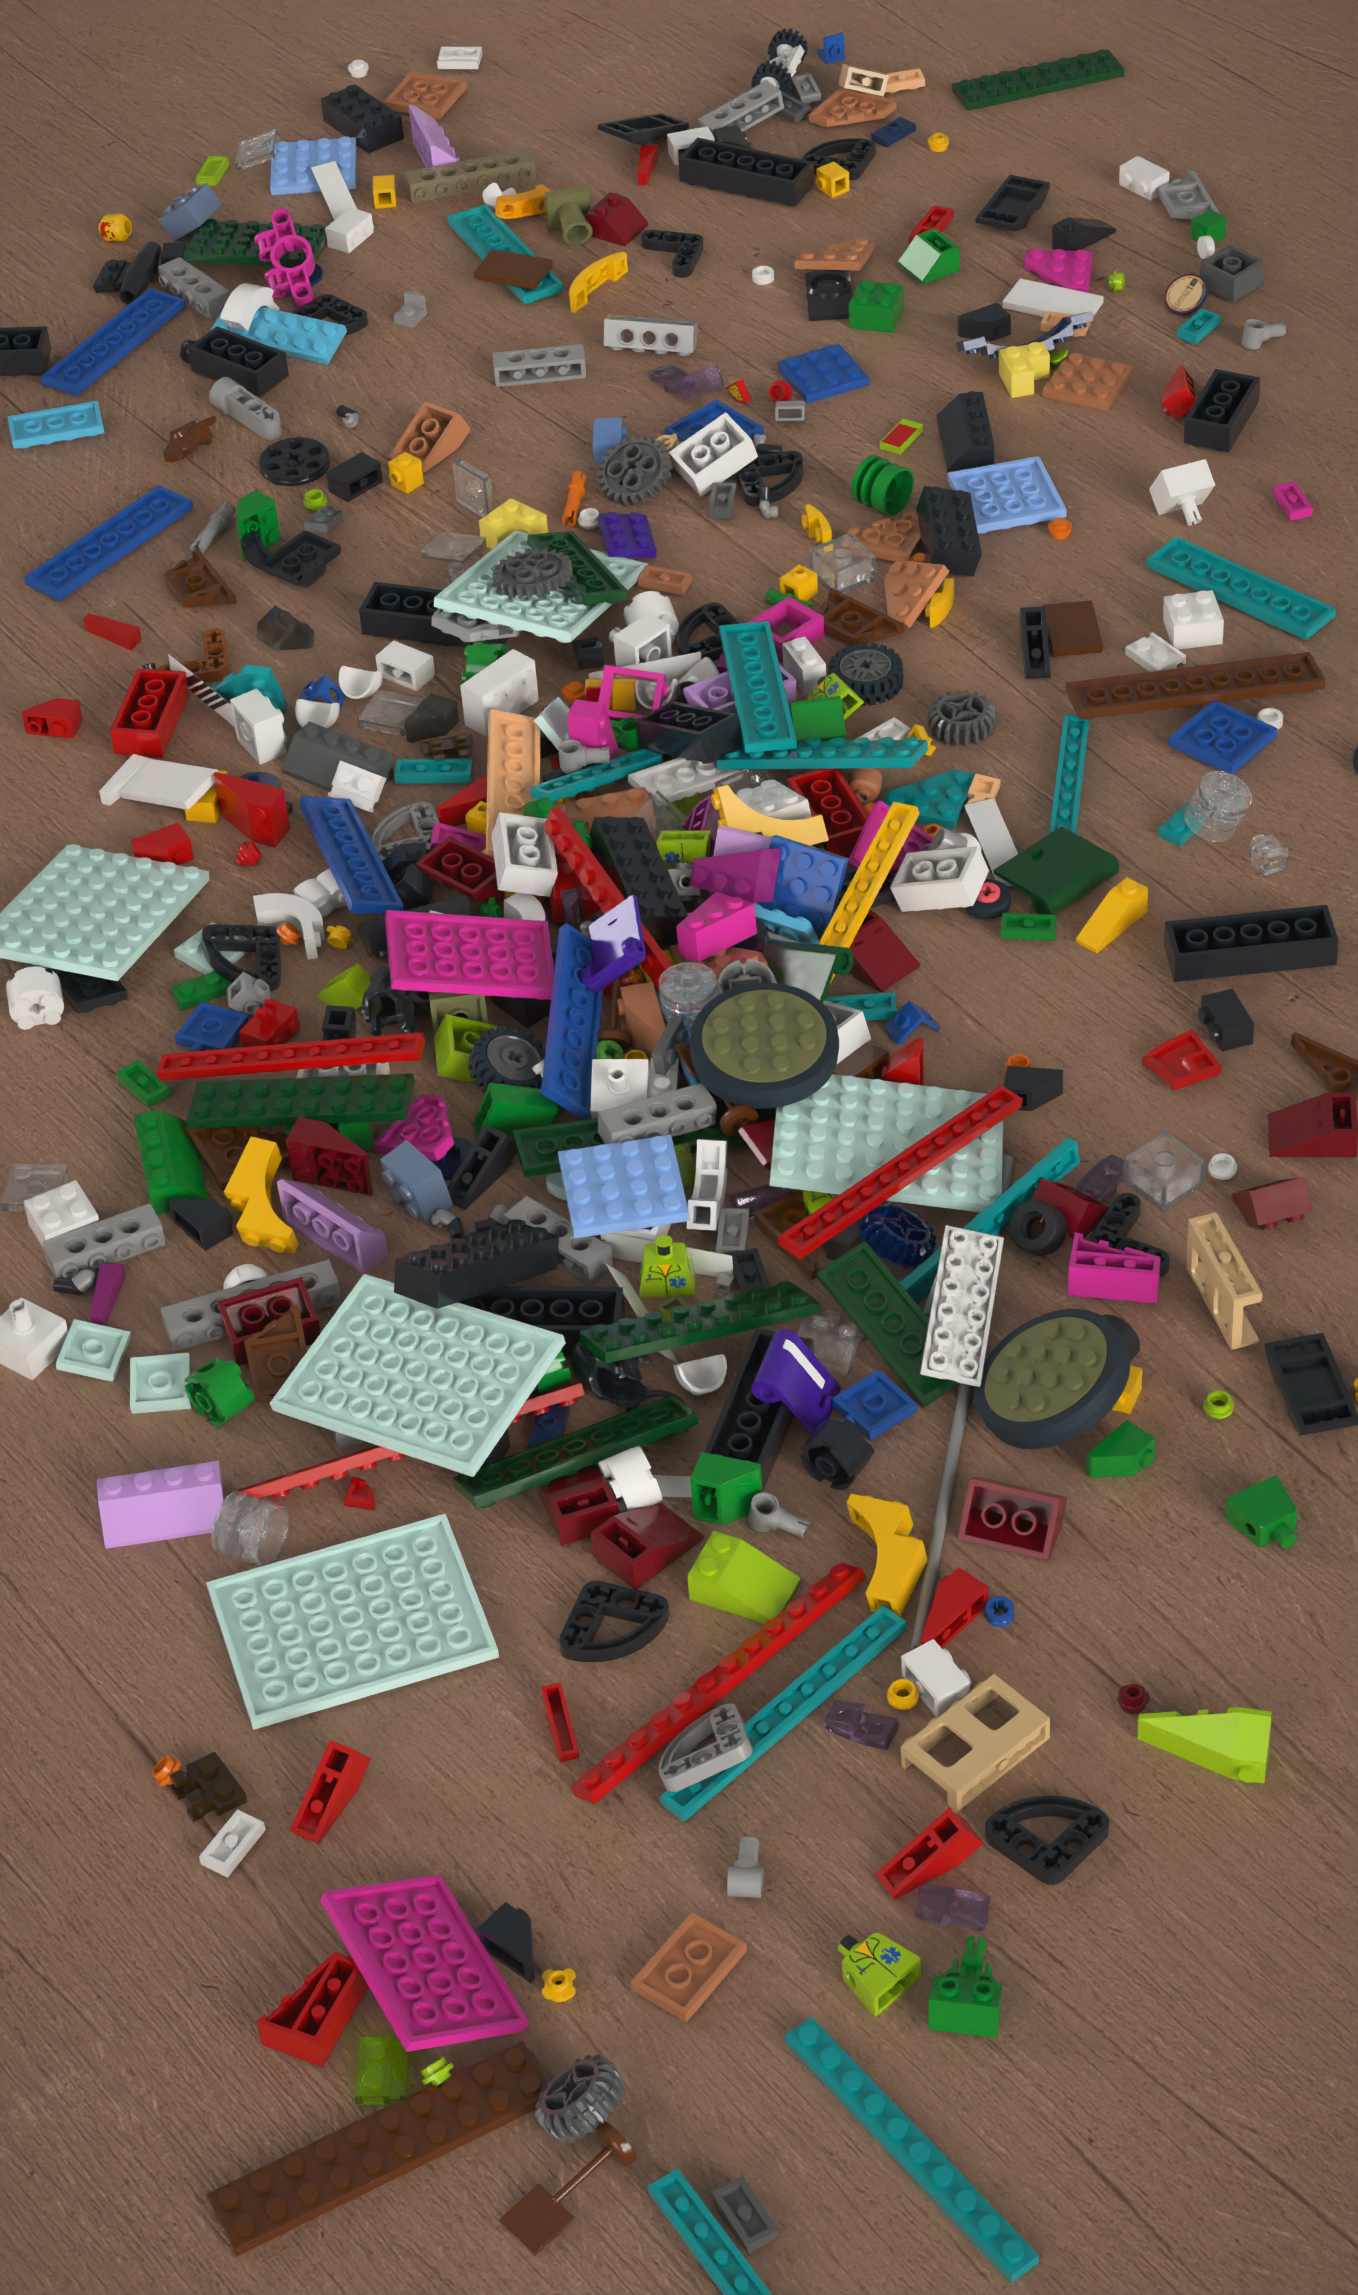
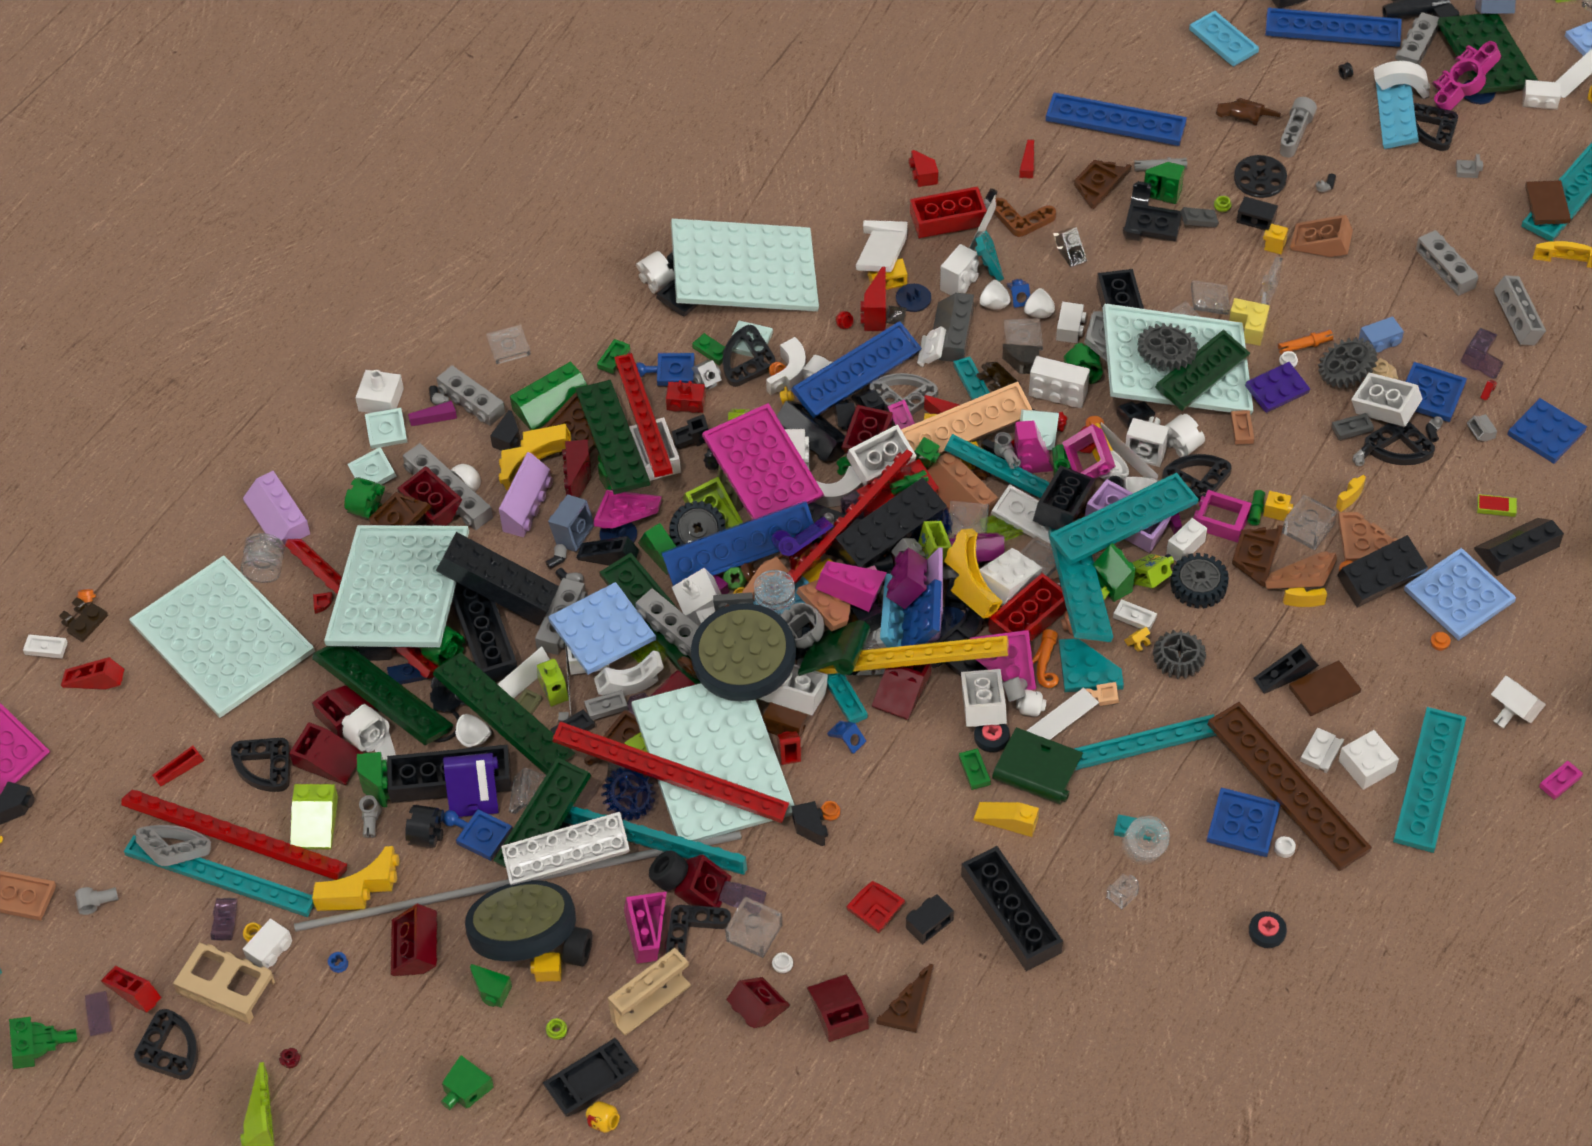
camera: 65 degrees right, 10 degrees up
(59, 1211) = (482, 365): white brick -> none
(164, 845) = (830, 276): red slope -> none
(239, 358) = (1343, 99): black brick -> none
(780, 391) = (1503, 413): red plate -> none
(878, 1970) = (39, 989): lime torso -> none
(882, 485) = (1413, 512): green wheel -> none
(955, 1605) = (325, 934): red slope -> none

